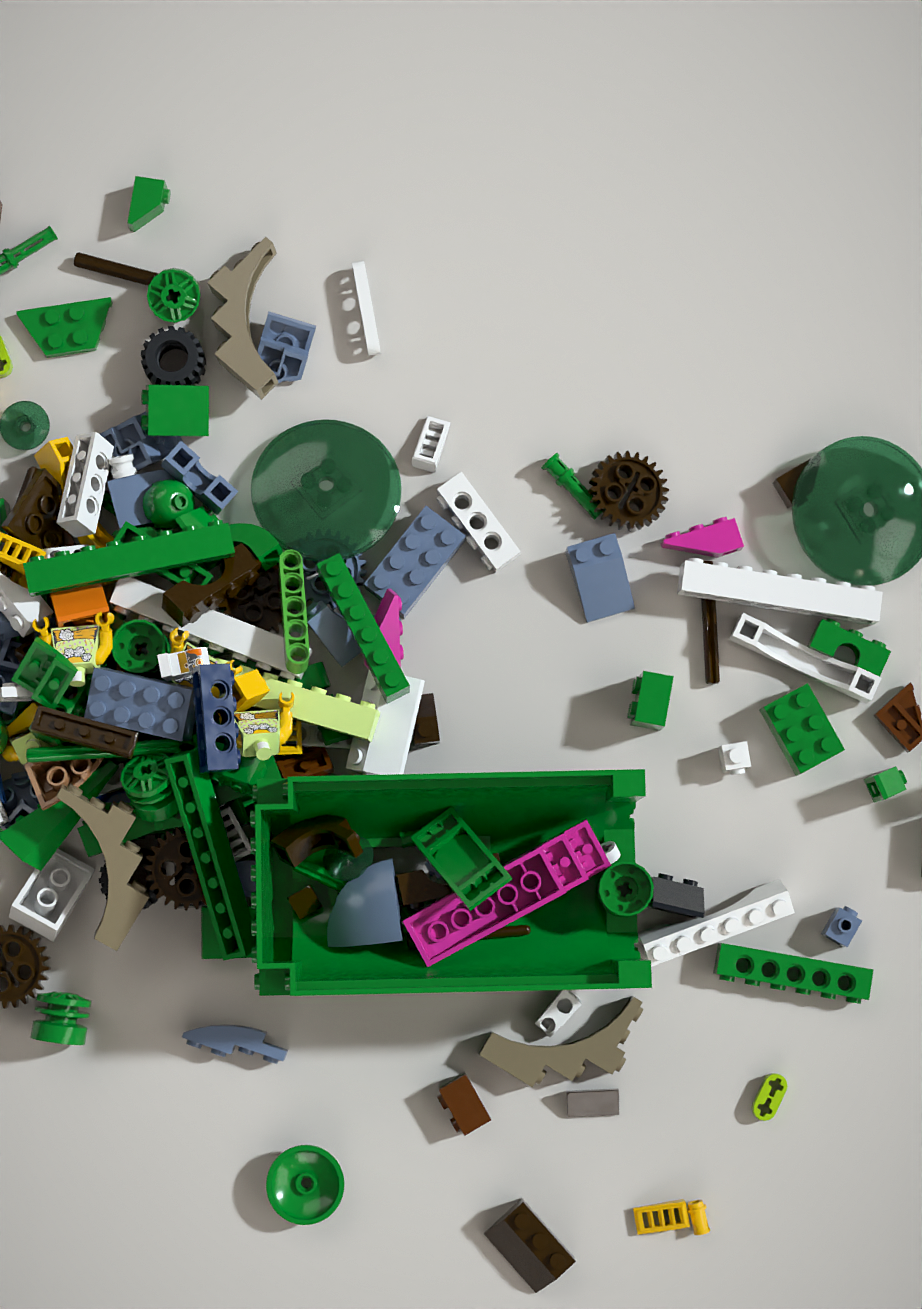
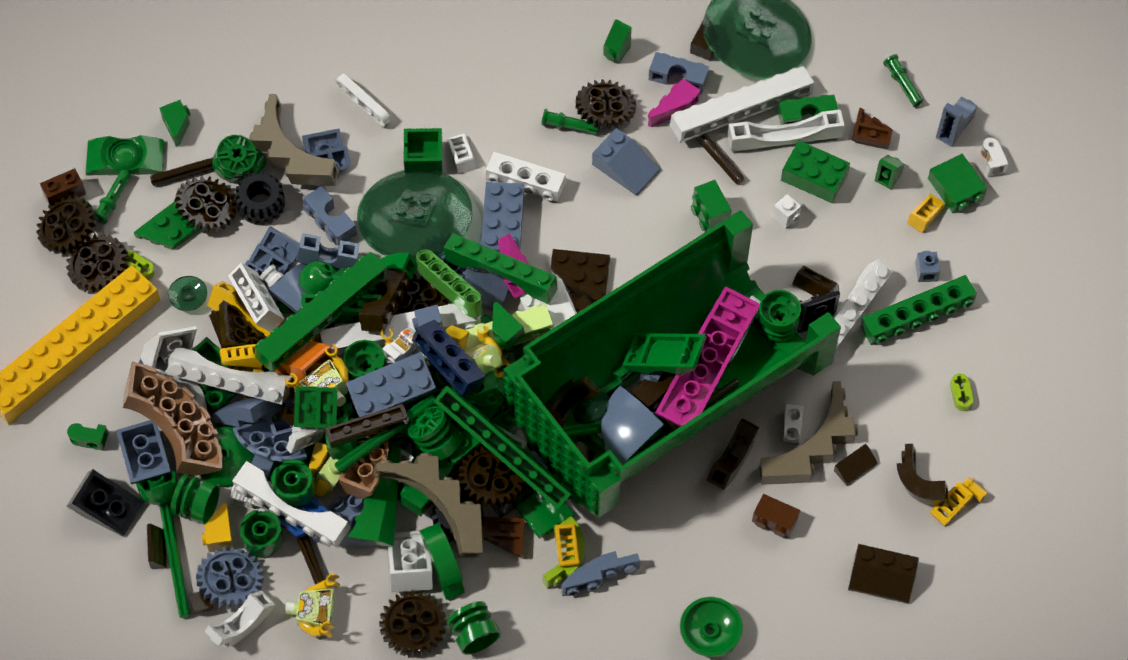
camera: 30 degrees left, 20 degrees down
(67, 209) = (135, 155): none -> green slope
(77, 921) = (443, 560): none -> green arch
(92, 342) = (213, 201): none -> dark brown gear
(170, 930) = (505, 533): none -> reddish brown wing
(175, 410) = (283, 222): green panel -> none
(206, 310) = (259, 163): none -> green arm
(227, 974) = (566, 528): none -> yellow slope
(232, 408) = (337, 228): none -> sand blue arch
(232, 992) = (556, 574): none -> lime arch
(237, 644) = (426, 315): none -> sand blue brick
(311, 711) = (505, 327): none -> green slope
(388, 419) = (423, 149): none -> green piece
(461, 682) = (582, 272): none -> dark brown plate
(462, 1010) = (734, 455): none -> dark brown arch
(636, 1174) = (927, 492): none -> dark brown arch
(694, 422) = (618, 41): none -> green slope
(705, 860) = (813, 282): none -> dark brown slope
(729, 485) = (665, 66): none -> sand blue arch
(875, 863) = (920, 222): none -> yellow slope

